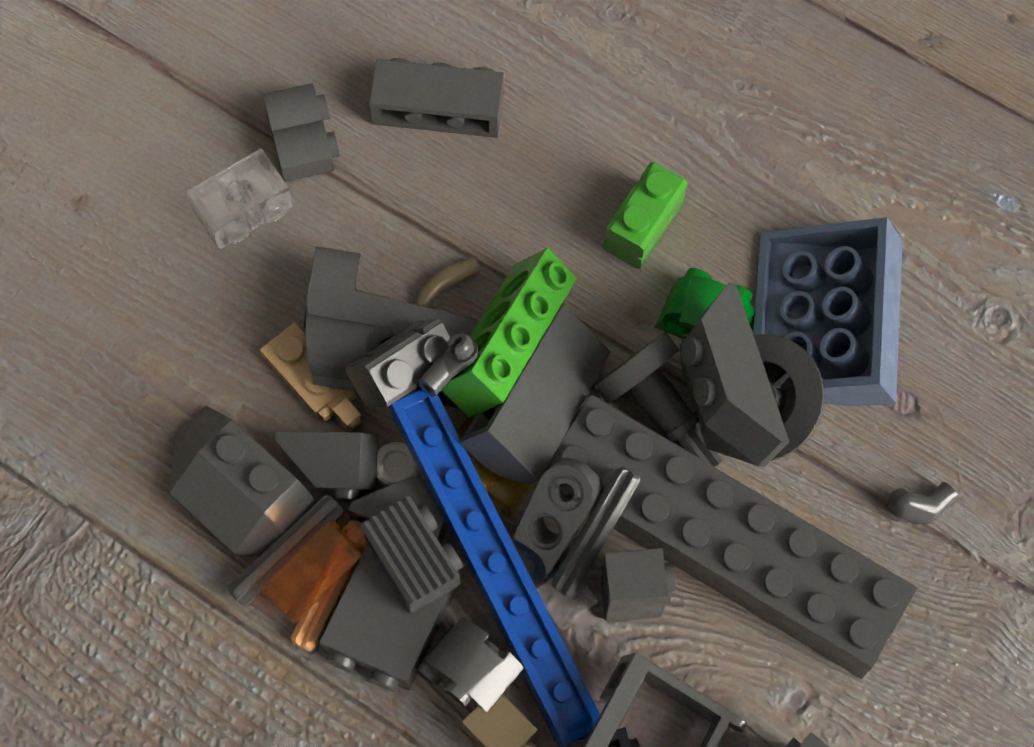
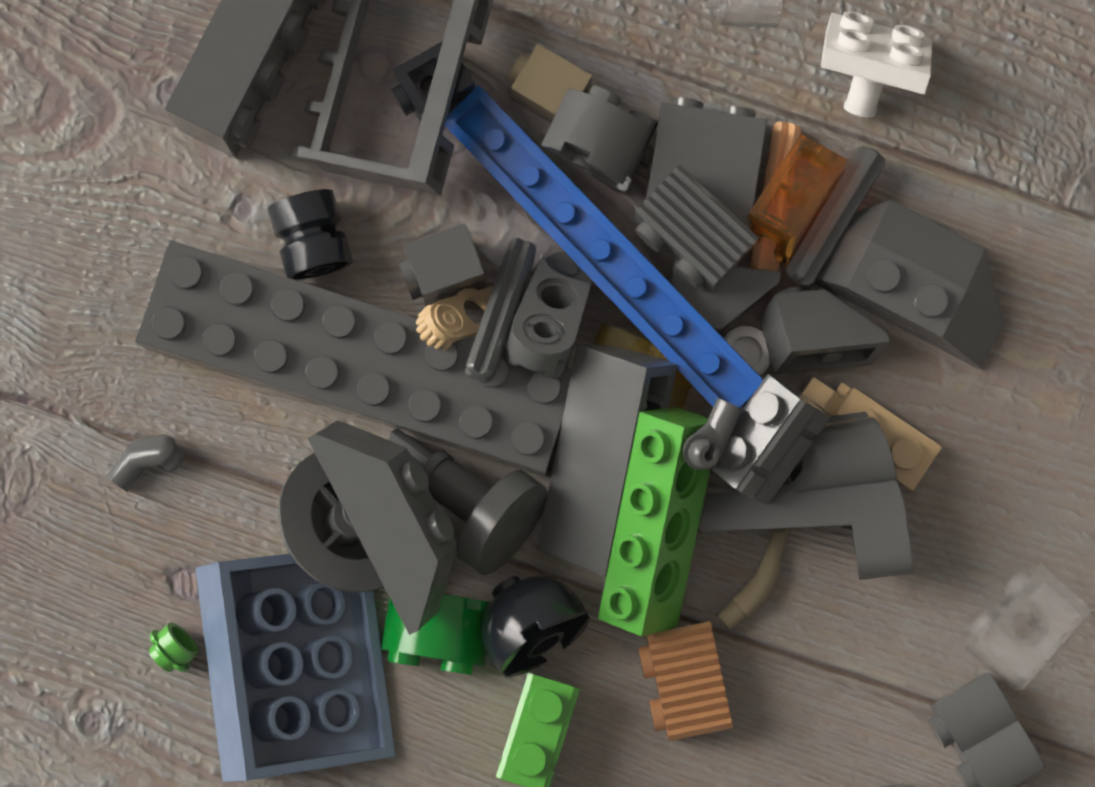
camera: 165 degrees right, 15 degrees up
(205, 675) = (875, 58): none -> white plate
(517, 221) = (686, 681): none -> medium nougat brick
(632, 294) = (529, 621): none -> black cylinder
(643, 531) = (447, 320): none -> tan piece
(744, 648) = (310, 234): none -> black wheel
(924, 350) = (173, 648): none -> bright green plate

